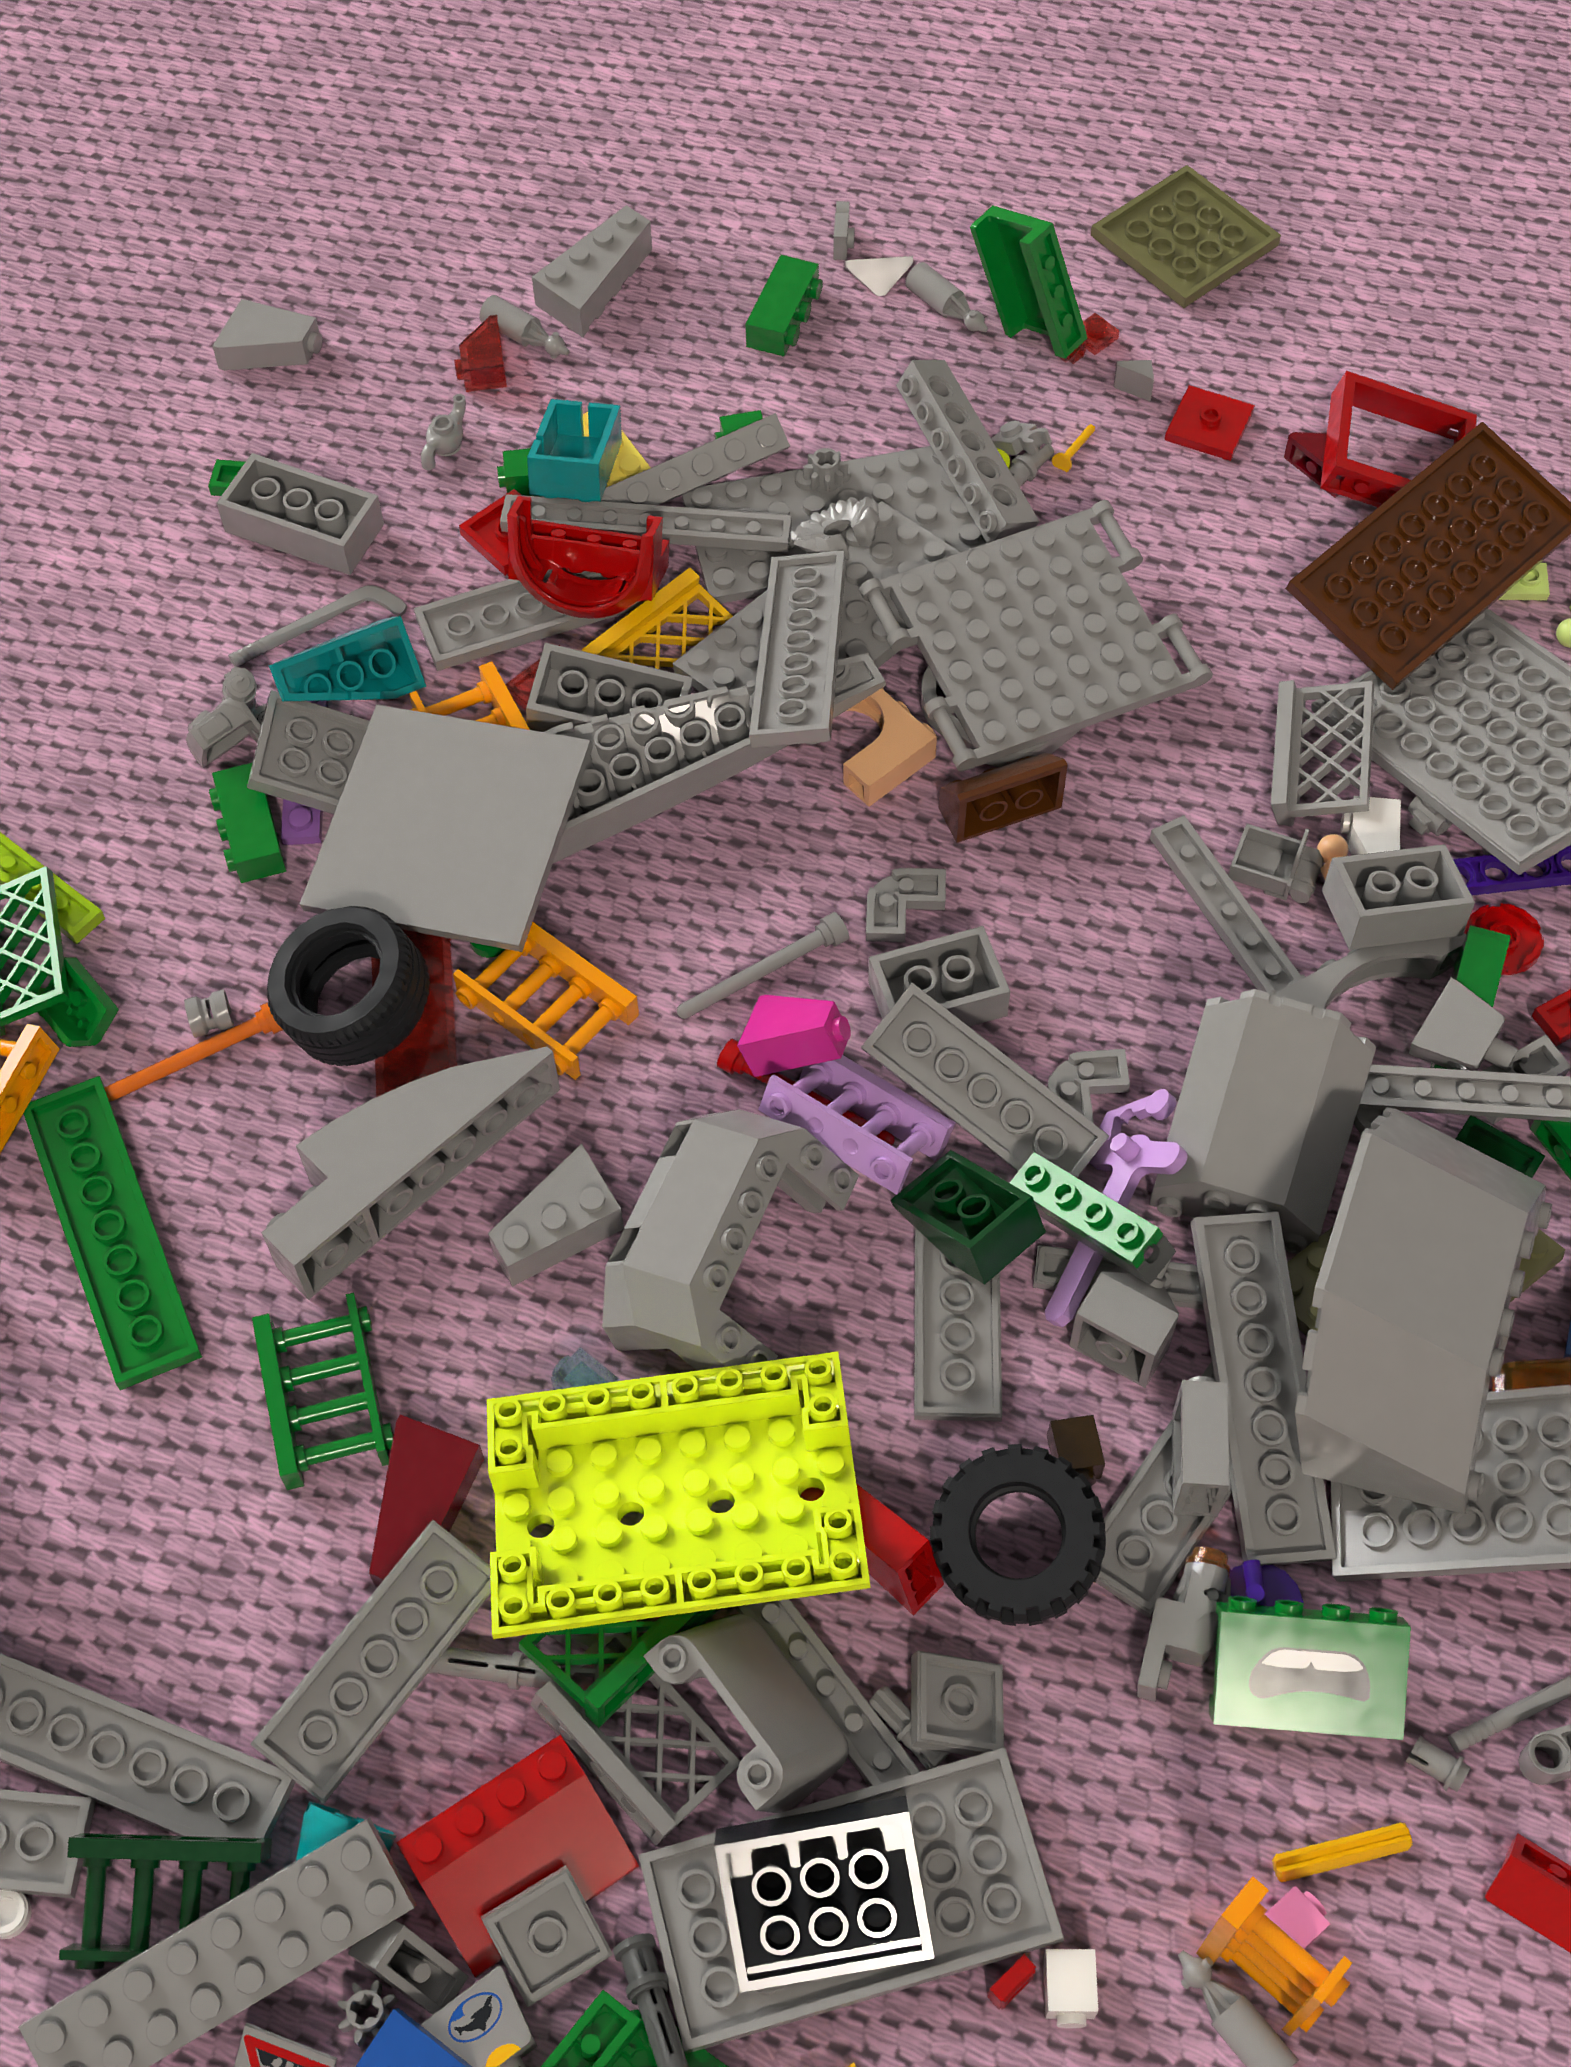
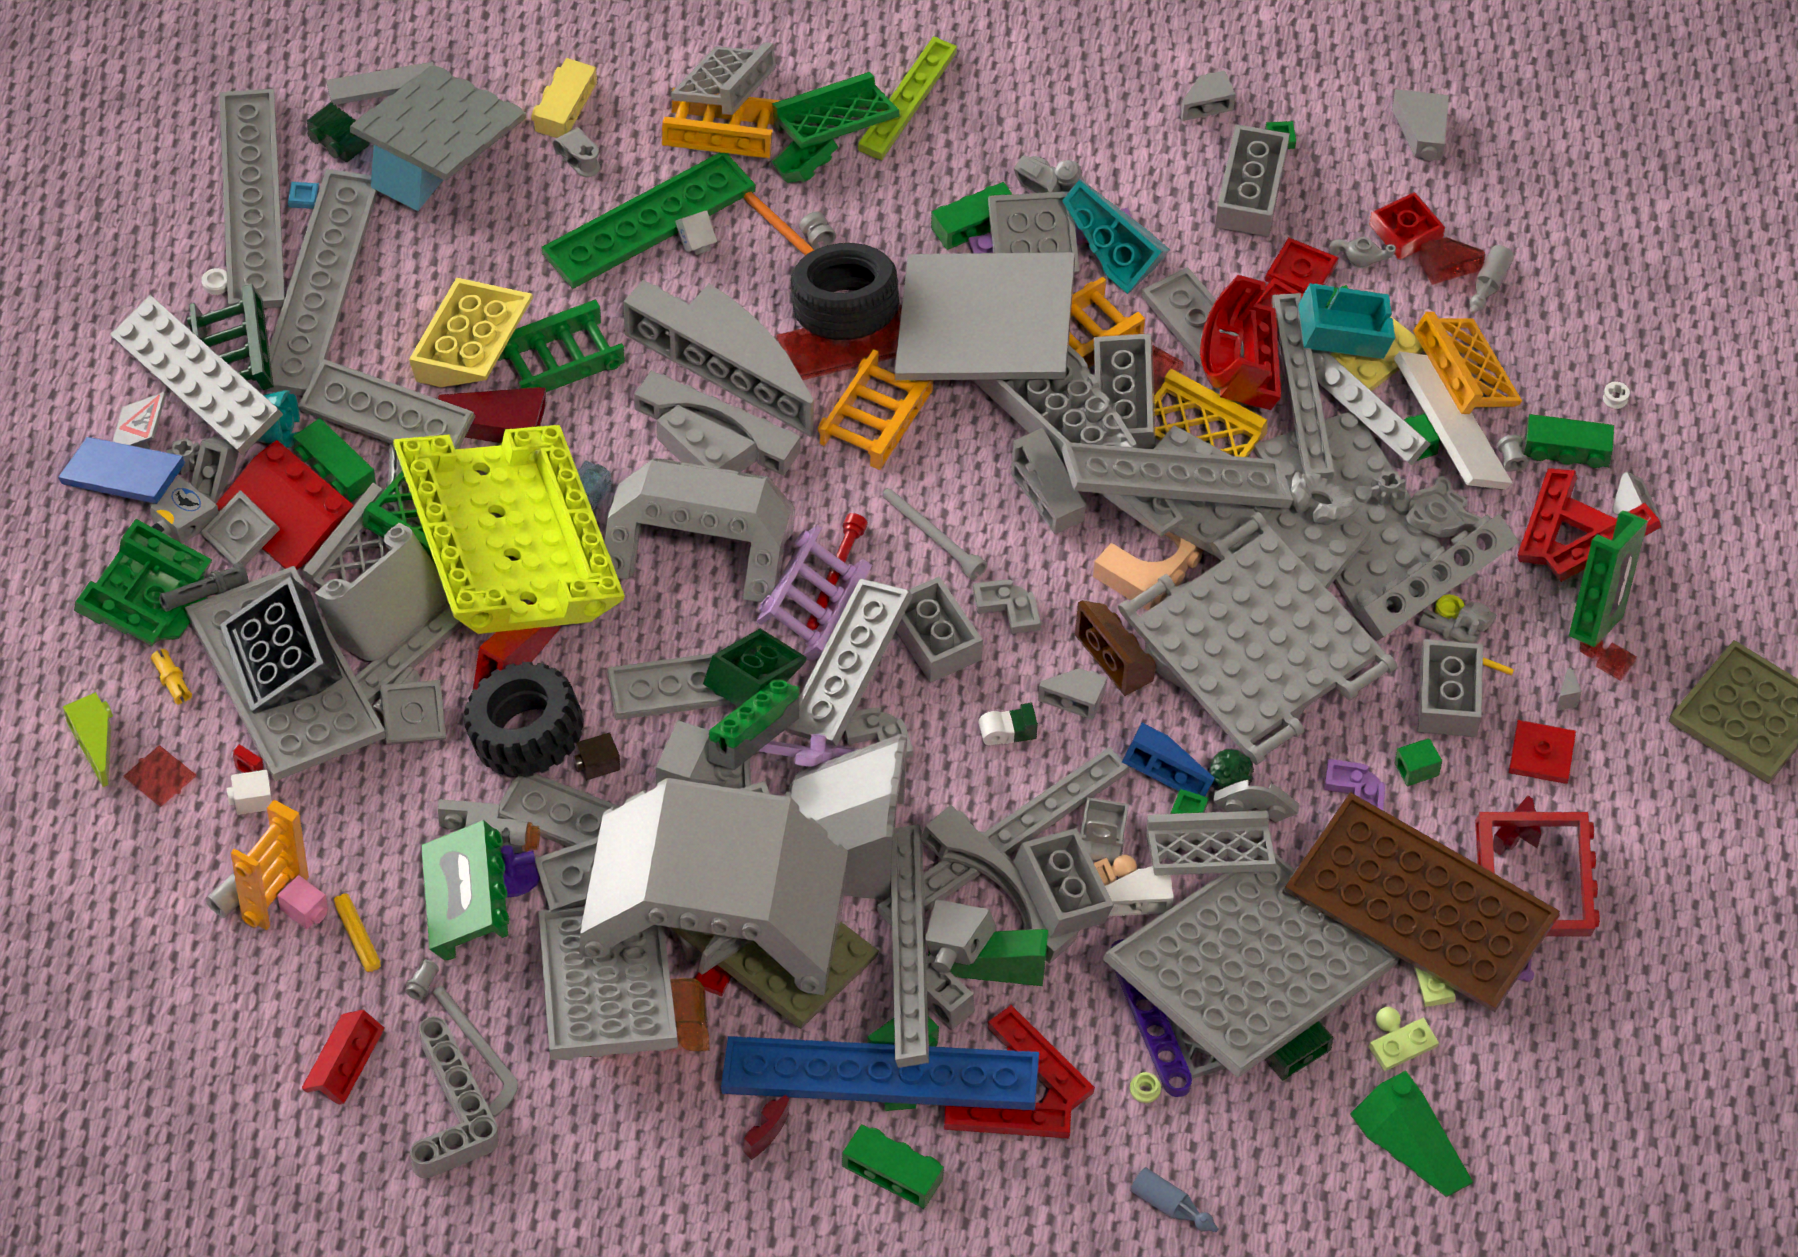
camera: 75 degrees right, 5 degrees down
(140, 534) = (1208, 96): none -> light grey slope
(163, 1164) = (696, 232): none -> light grey brick
(269, 1504) = (467, 333): none -> light yellow slope
(310, 621) = (1200, 239): light grey piece -> none
(419, 383) = (1406, 225): none -> red brick
(443, 1762) = (333, 460): none -> green brick
(448, 498) = (1301, 265): none -> red plate
(453, 1256) = (774, 445): none -> light grey arch
(593, 270) = (1563, 310): light grey wedge -> none
(648, 373) = (1456, 370): none -> light orange fence
(718, 248) = (1618, 387): none -> white bush
(726, 818) = (1046, 481): none -> light grey wedge
(729, 399) = (1457, 431): none -> white tile
(786, 359) = (1512, 452): none -> light grey bush
(792, 1034) = (866, 541): dark pink slope -> none
(843, 235) = (1667, 466): light grey plate -> none
(859, 440) = (1440, 510): none -> light grey tile
(879, 336) = (1556, 505): none -> red plate
(1060, 848) = (1074, 691): none -> light grey slope
(1098, 932) = (1009, 725): none -> leg
(1124, 469) = (1450, 688): none -> light grey brick
(1181, 777) = (1166, 761): none -> blue slope
(1200, 1447) = (592, 796): light grey window -> none
(1208, 713) = (1230, 768): none -> dark green piece
(1219, 531) = (1418, 762): none -> green panel
(1249, 589) = (1355, 778): none -> medium lavender plate
(1249, 767) = (1189, 803): none -> green plate
(1255, 711) = (1245, 797): none -> light grey plate
(1500, 1146) = (880, 1000): dark green tile -> none
(1528, 942) = (1076, 997): red tile -> none

